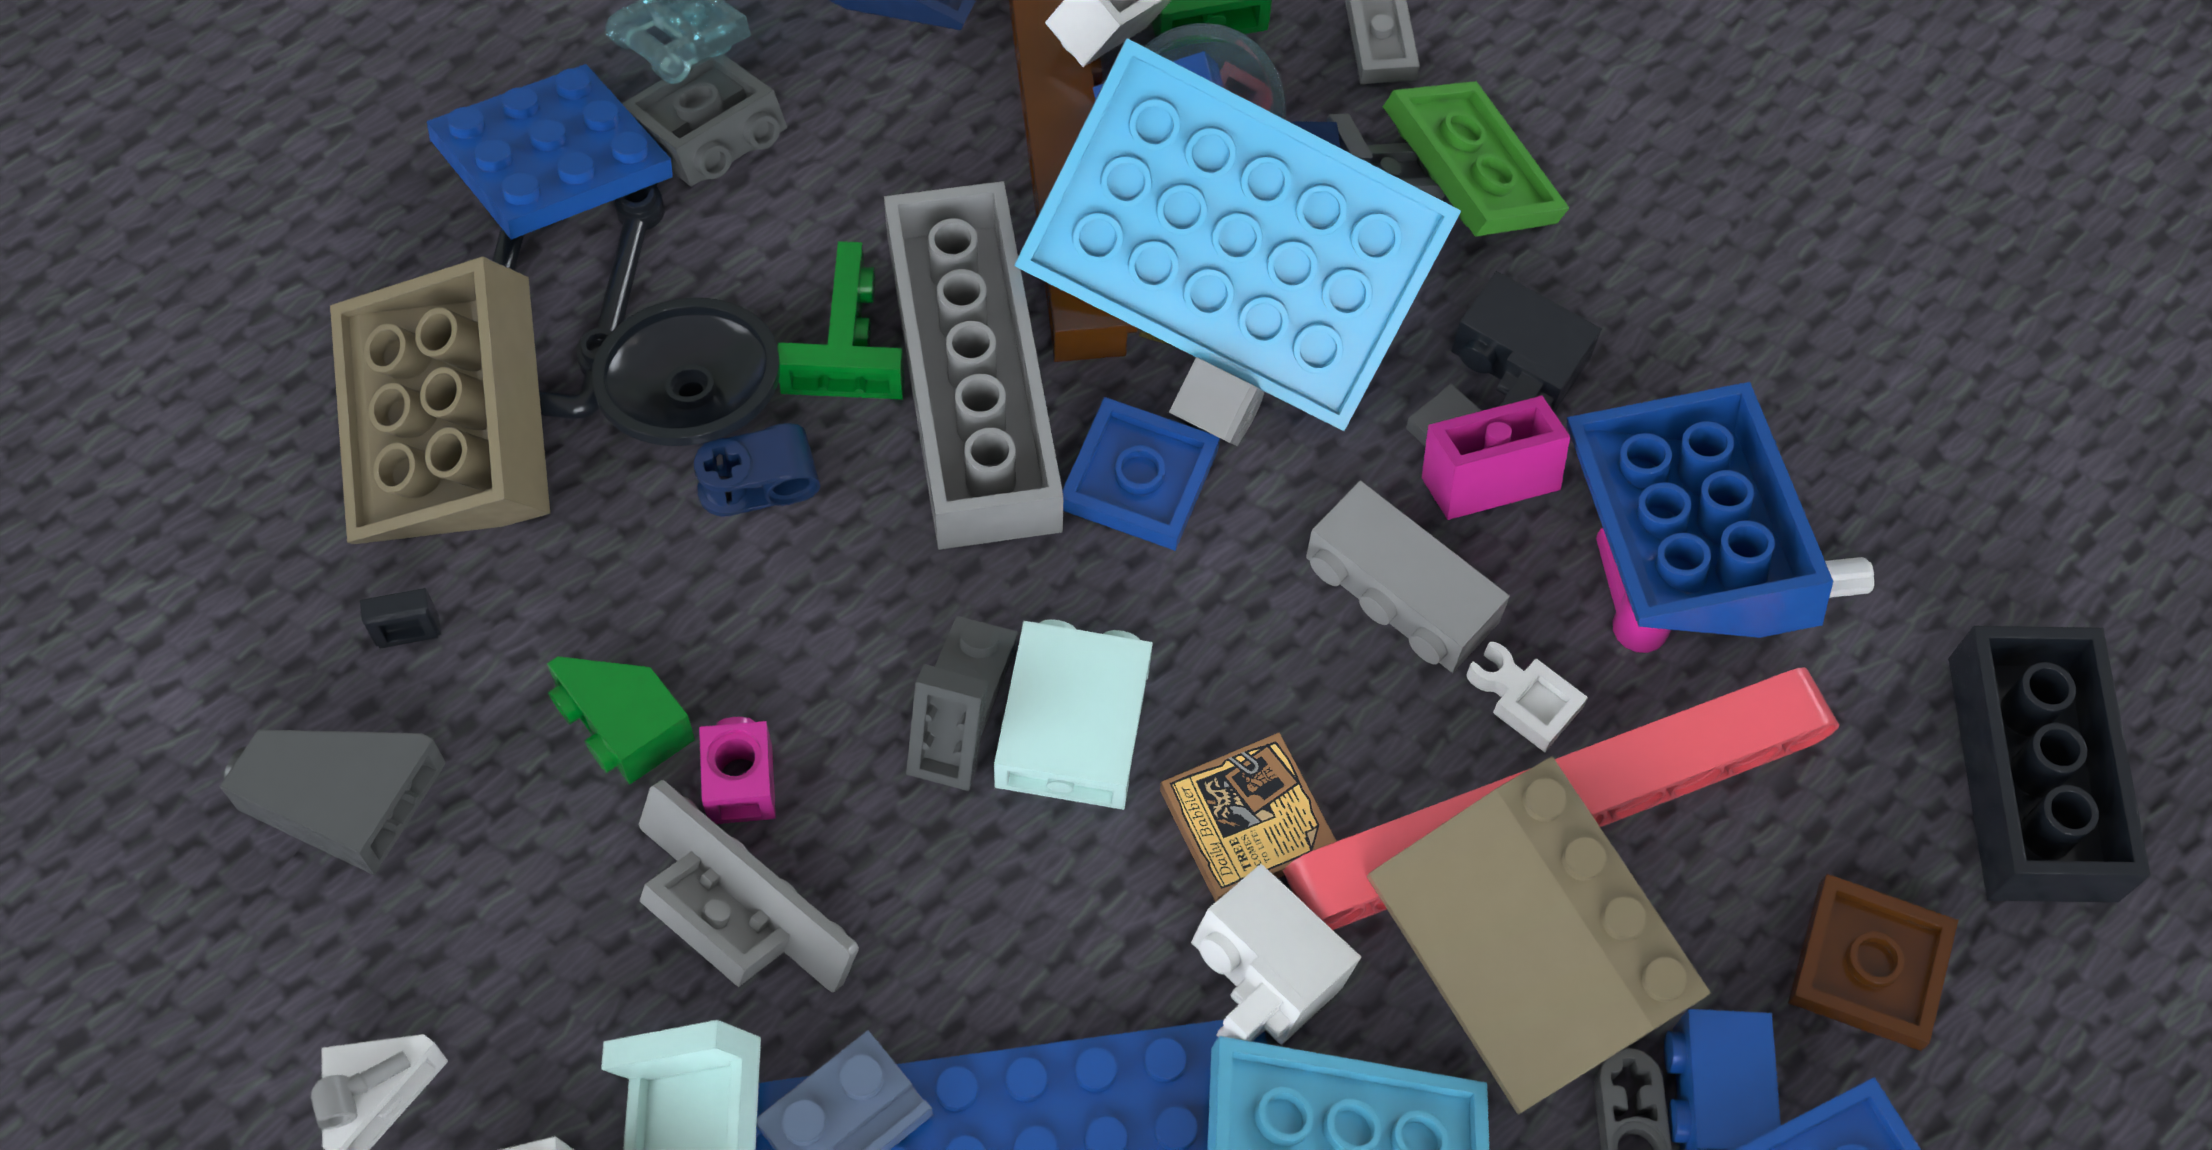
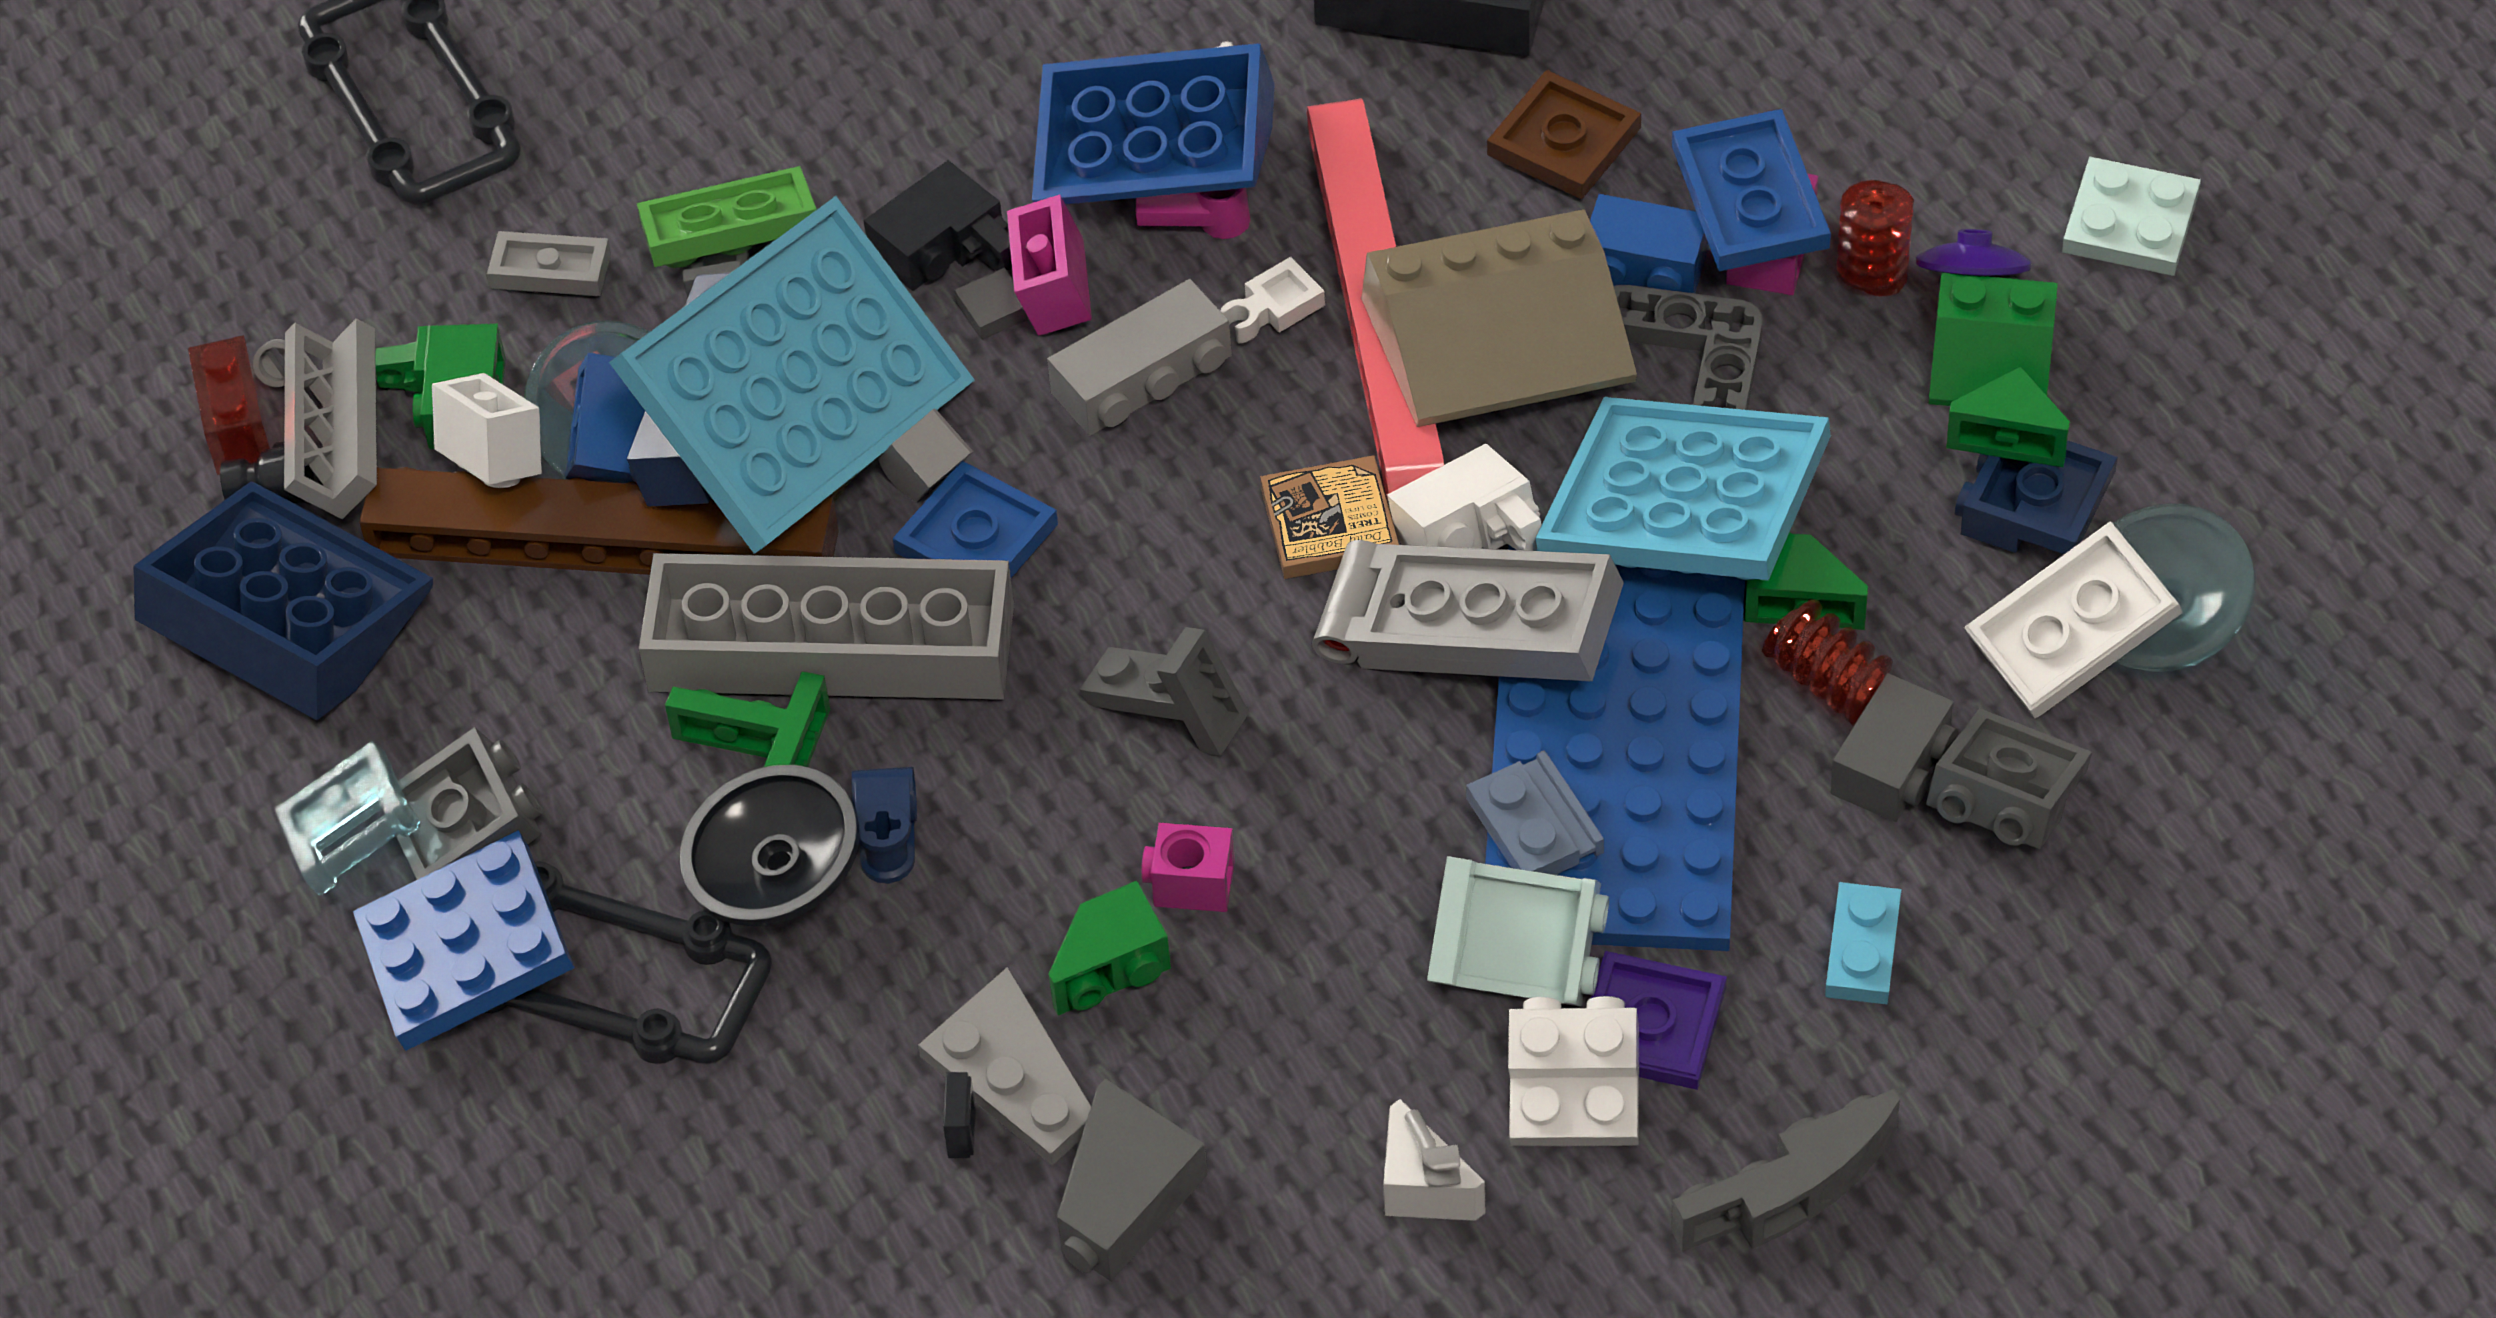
camera: 70 degrees left, 10 degrees down
(439, 405) = (741, 1055): dark tan slope -> none
(477, 655) = (1012, 1067): none -> light grey wing
(731, 902) = (1310, 884): light grey bracket -> none
(1072, 713) = (1203, 588): light aqua panel -> none
(1111, 992) = (1469, 611): none -> light grey hinge

